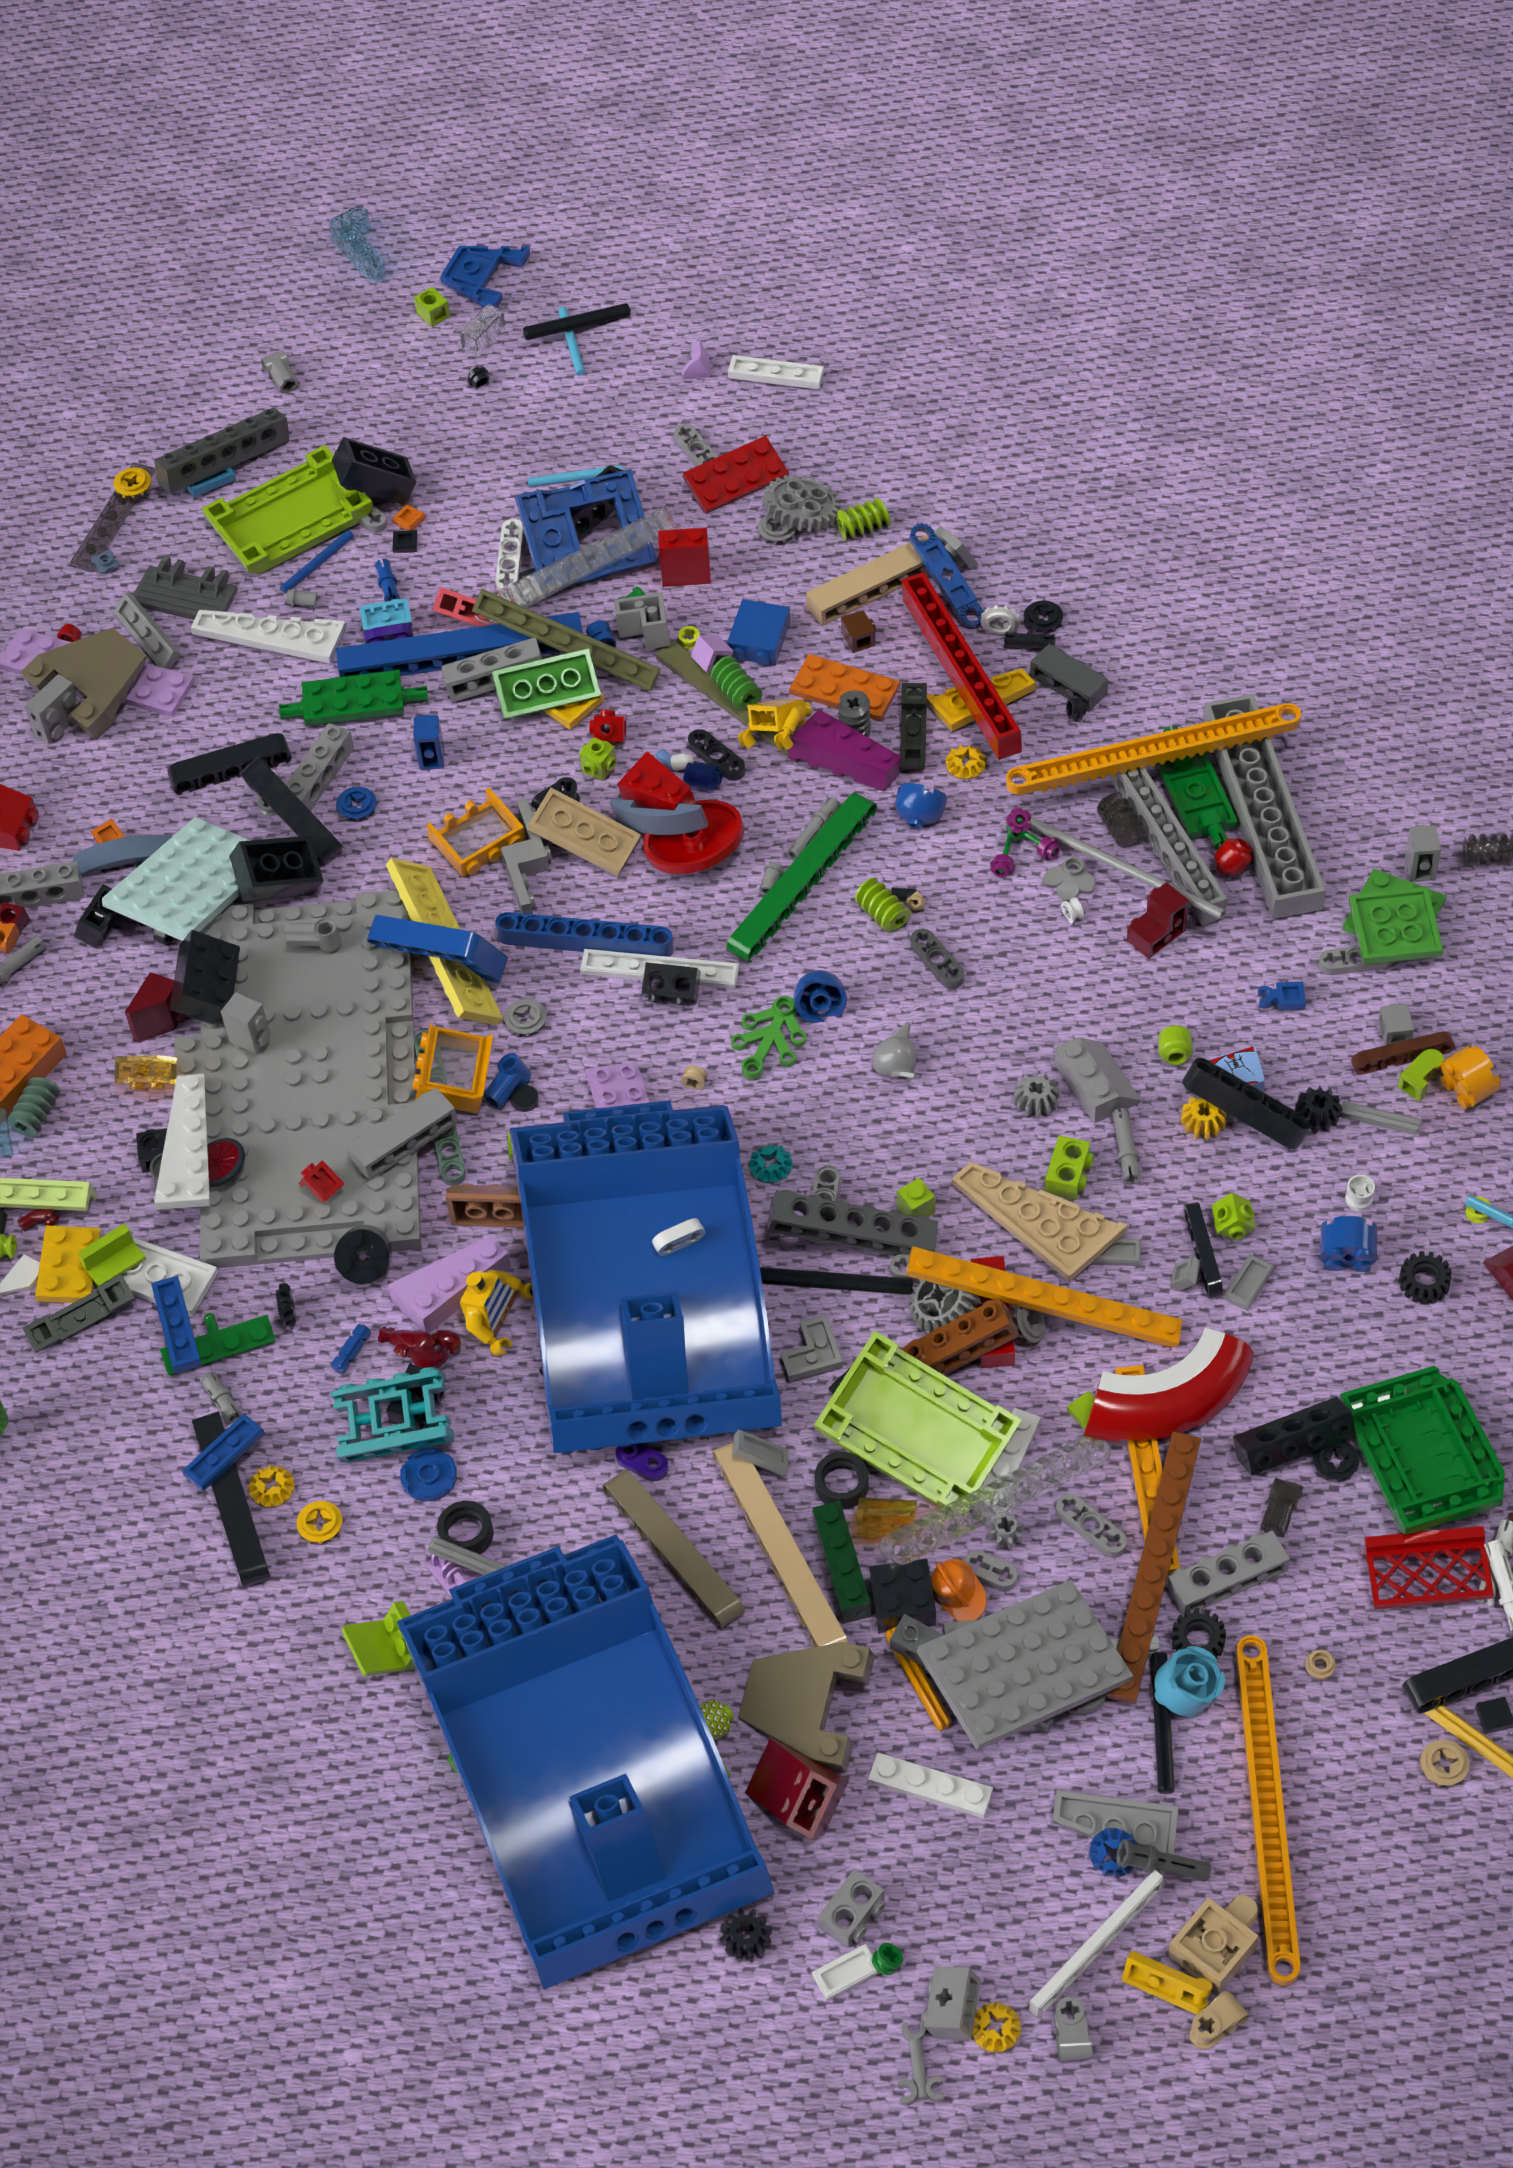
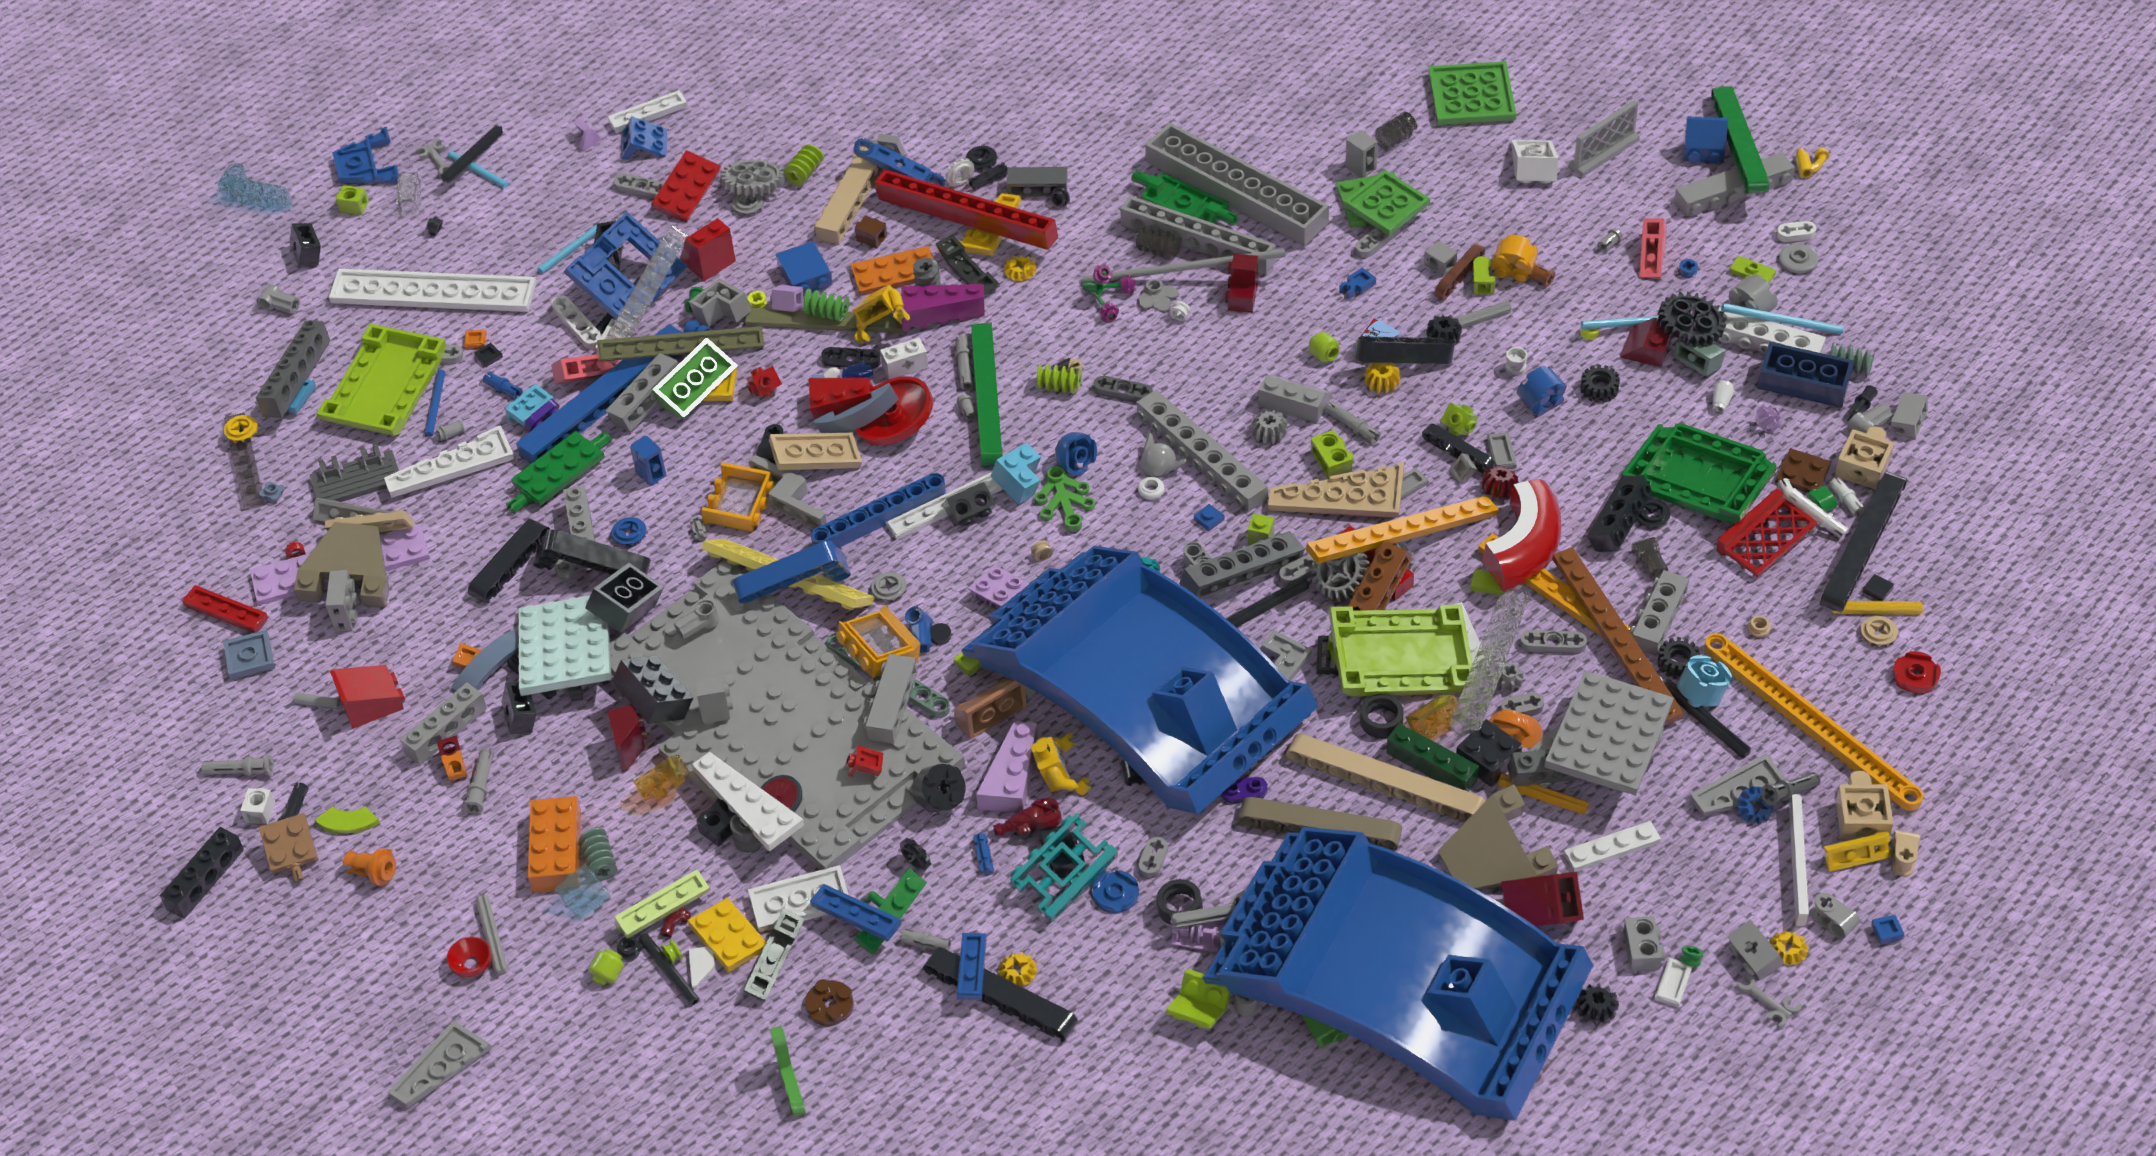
camera: 40 degrees left, 5 degrees down
(80, 1381) = (828, 990): none -> reddish brown plate
(111, 1255) = (761, 905): lime panel -> none
(154, 651) = (385, 521): none -> tan plate
(309, 1515) = (1074, 958): yellow gear -> none
(348, 328) = (305, 244): none -> black brick
(373, 471) = (429, 318): black brick -> none
(416, 842) = (698, 528): none -> light grey piece
(426, 448) = (433, 290): none -> white plate
(493, 1466) = (1148, 856): none -> light grey beam
(548, 297) = (433, 150): none -> light grey bar
(597, 758) = (775, 404): lime brick -> none
(678, 1237) = (1151, 633): white beam -> none
(743, 975) = (1016, 473): none -> medium azure brick
(746, 400) = (643, 136): none -> blue bracket
(759, 787) = (904, 358): none -> white brick
(760, 1452) = (1319, 731): light grey tile -> none
(862, 1091) = (1151, 494): none -> white piece
(887, 1151) = (1209, 517): none -> blue plate
(919, 805) = (1021, 306): blue cylinder -> none
(945, 996) = (1202, 451): none -> light grey brick
(1113, 2088) = (1887, 929): none -> blue plate
(1153, 749) = (1143, 187): light orange gear -> none
(1205, 1311) = (1498, 482): none -> dark red gear
(1233, 857) = (1248, 222): red head -> none
(1436, 1855) = (1915, 683): none -> red plate
(1487, 1114) = (1542, 275): none -> dark orange bush

